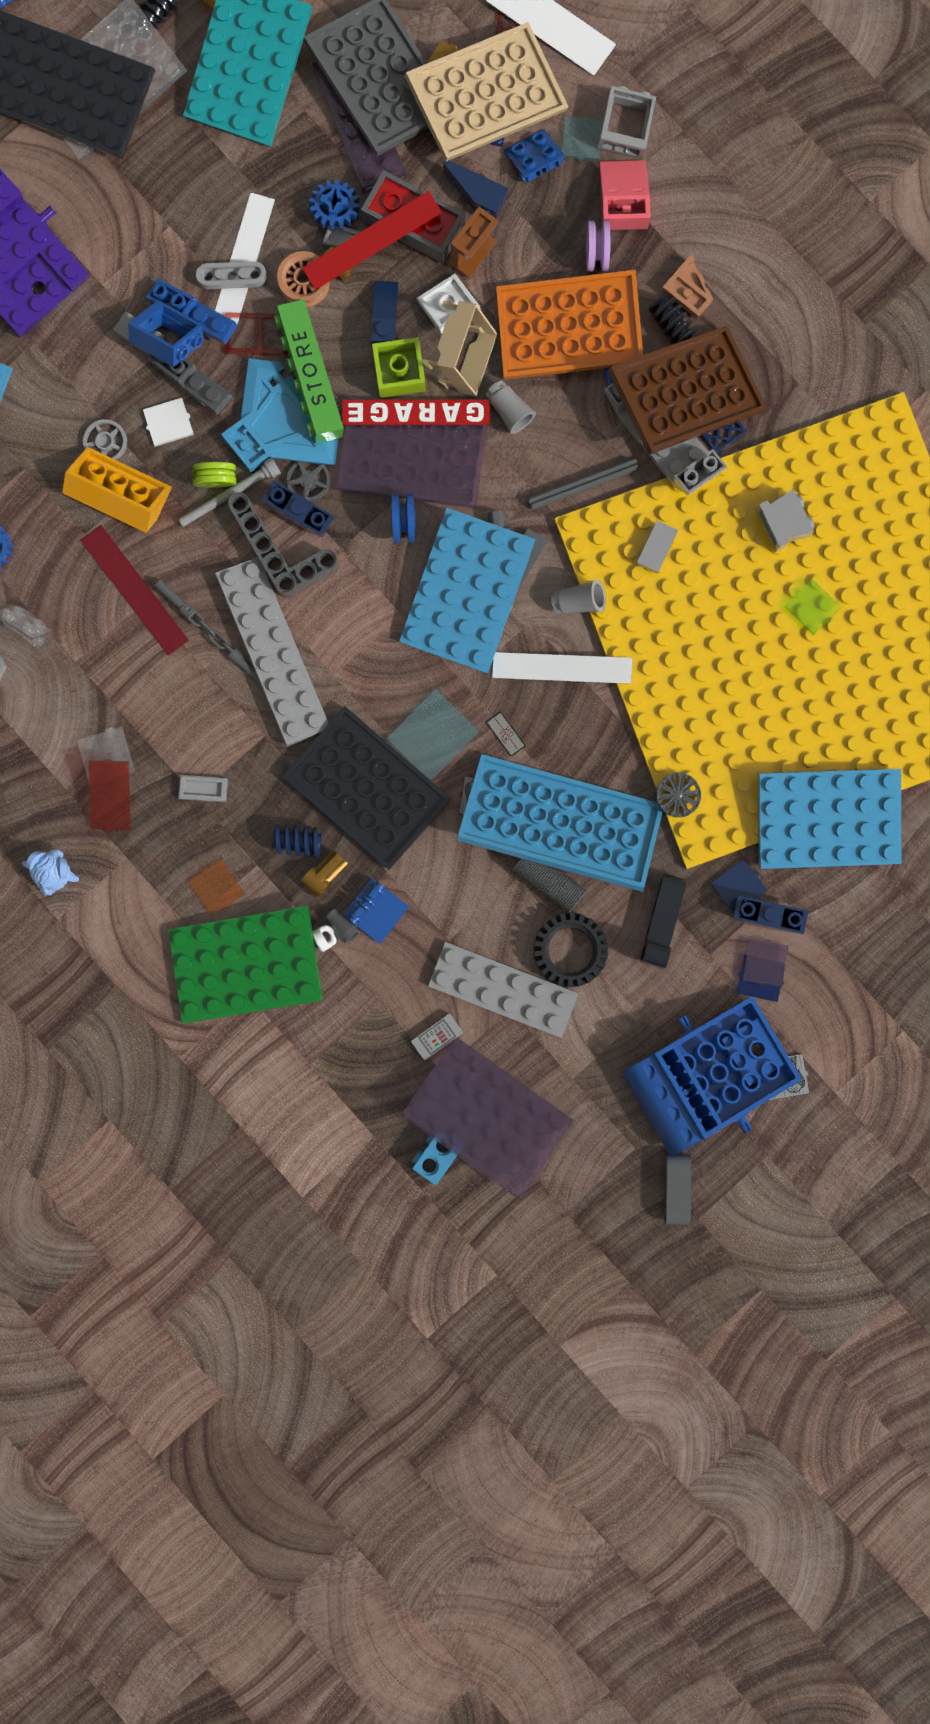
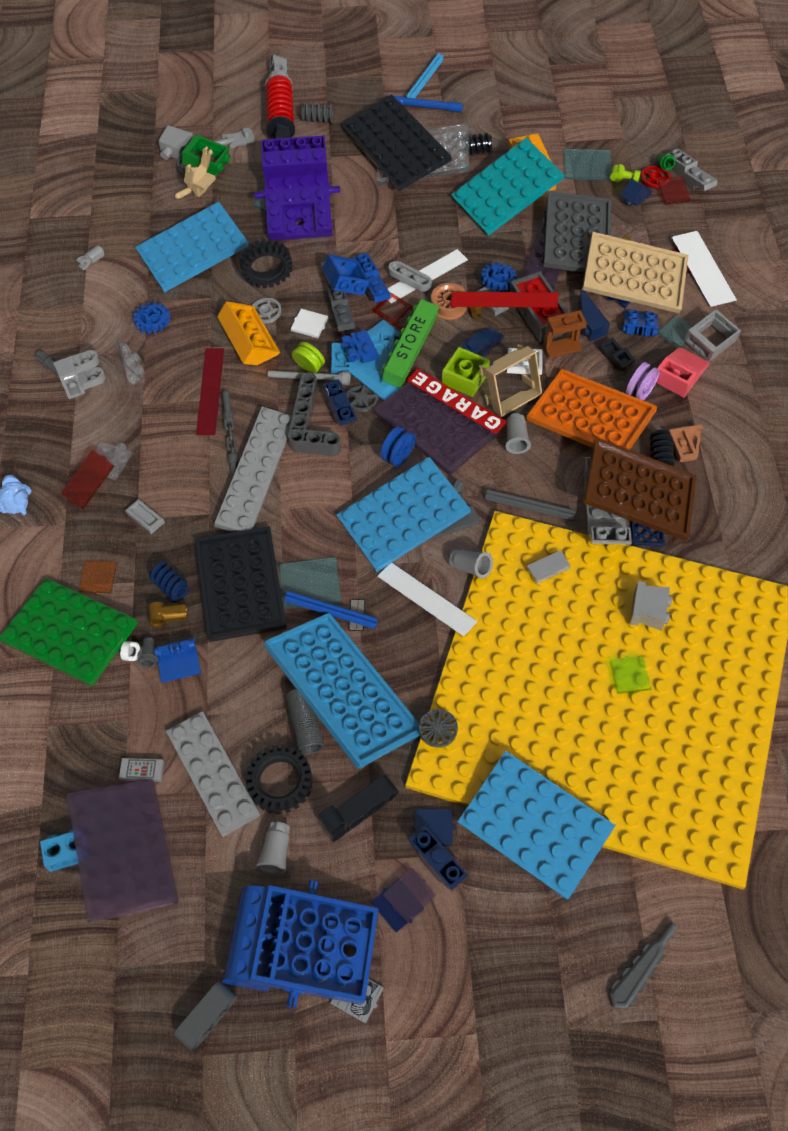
camera: 40 degrees right, 25 degrees down
(64, 386) = (266, 249): none -> black tyre
(261, 413) = (363, 345): none -> blue plate
(481, 748) = (334, 610): none -> blue axle
(538, 221) = (615, 354): none -> black slope
(620, 1013) = (274, 850): none -> light grey plant

